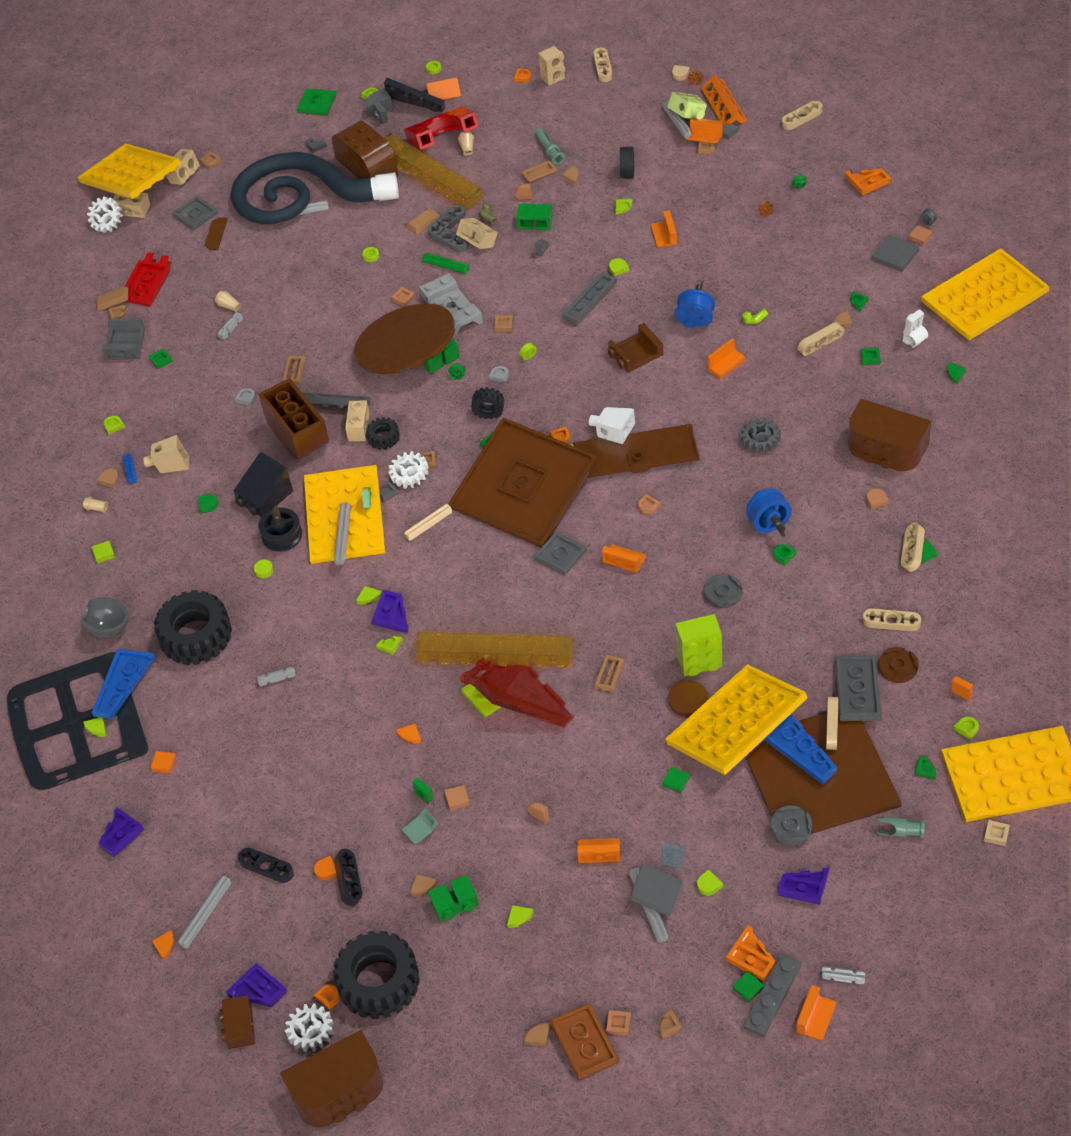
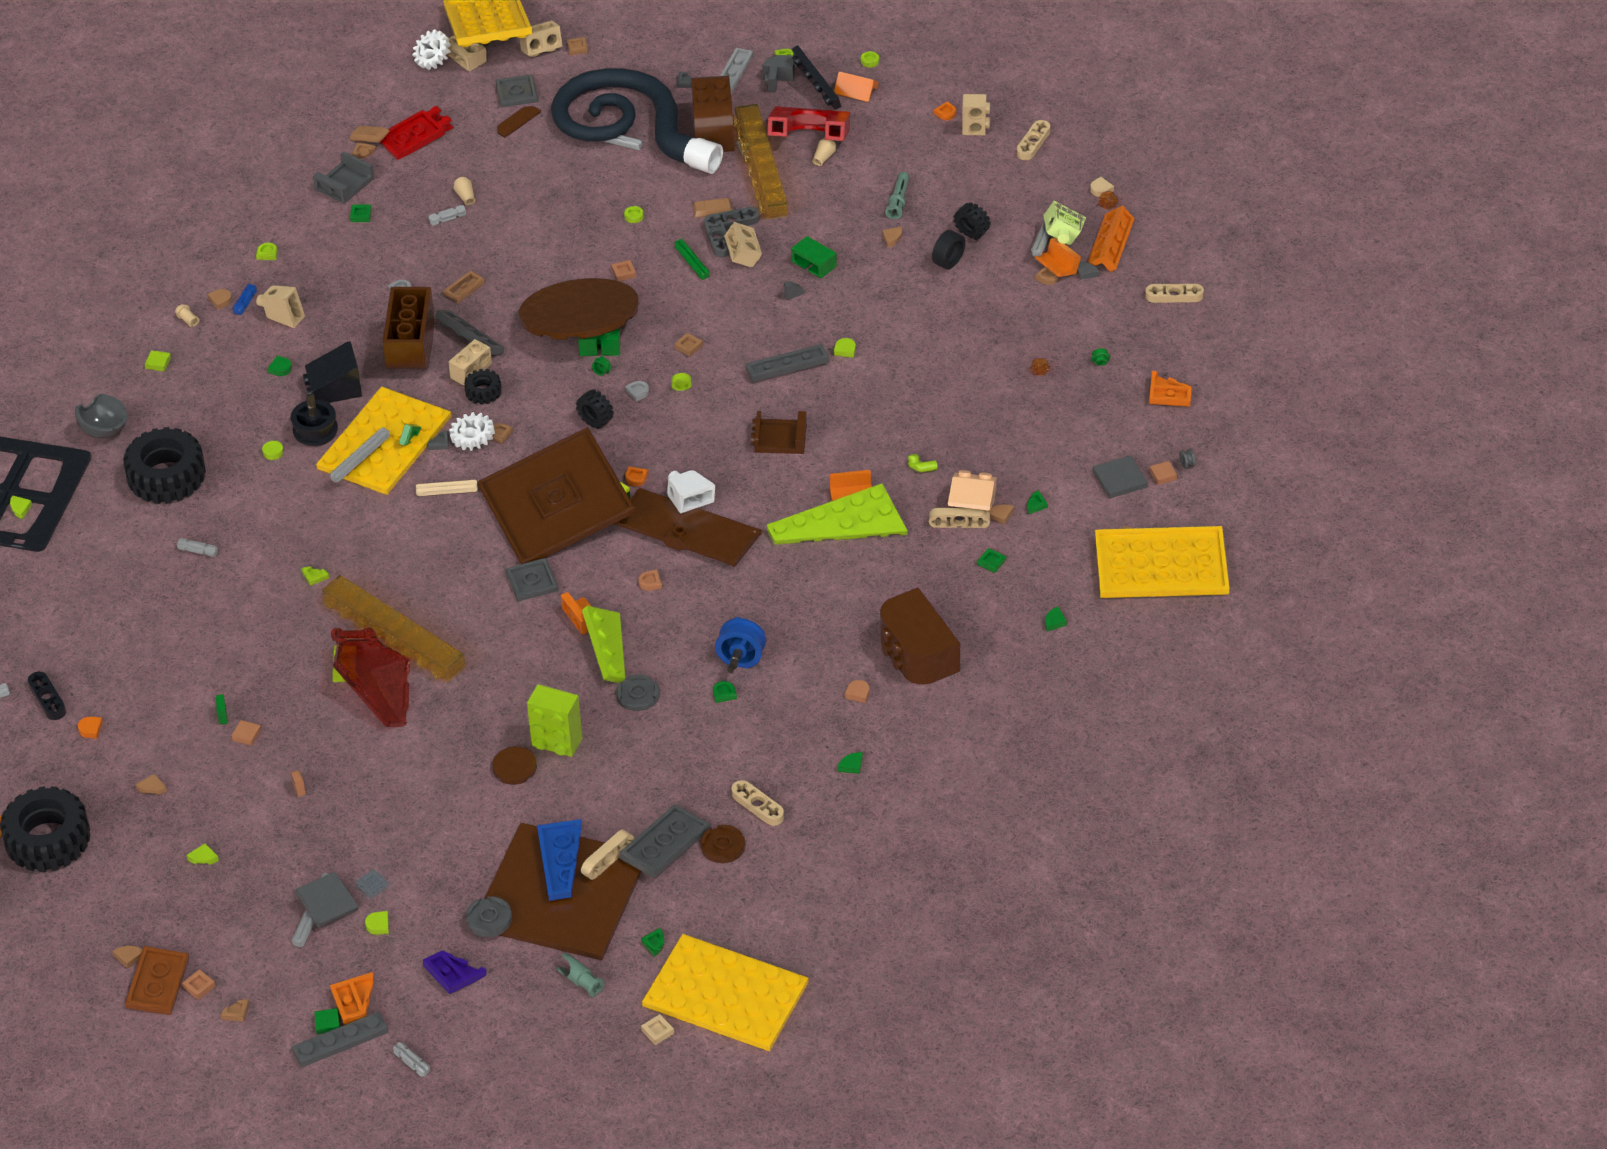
camera: 30 degrees right, 5 degrees down
(120, 681) = (70, 477): blue wing -> none
(163, 762) = (45, 566): orange tile -> none
(316, 102) = (727, 37): green plate -> none
(341, 115) = (737, 65): none -> light grey tile
(346, 886) = (91, 747): black beam -> none
(368, 595) = (336, 522): lime tile -> none
(391, 612) = (339, 547): dark purple wing -> none
(410, 734) = (258, 658): orange tile -> none
(420, 826) = (193, 736): sand green panel -> none
(445, 292) = (657, 286): light grey piece -> none
(449, 903) = (168, 814): green piece -> none
(486, 214) = (775, 231): olive arm -> none
(524, 192) = (828, 228): nougat tile -> none
(539, 171) = (865, 216): medium nougat tile -> none
(598, 850) = (315, 842): orange panel -> none
(606, 686) = (472, 708): medium nougat tile -> none
(622, 128) = (972, 220): none -> black tyre
(623, 205) = (910, 290): lime tile -> none
(663, 563) = (606, 637): none -> lime wing
(665, 231) = (923, 337): orange panel -> none
(676, 780) = (436, 825): green tile -> none
(694, 307) = (867, 422): blue wheel -> none
(736, 719) = (530, 802): yellow plate -> none
(744, 380) = (849, 517): none -> lime wing
(760, 435) = (810, 574): dark grey gear -> none
(815, 314) = (972, 490): none -> light nougat slope
(815, 1014) = (356, 1073): orange panel -> none
(913, 536) = (841, 750): tan beam -> none
(914, 331) = (1051, 555): white plate -> none
(962, 688) = (753, 894): orange tile -> none
(967, 727) = (727, 930): lime tile -> none

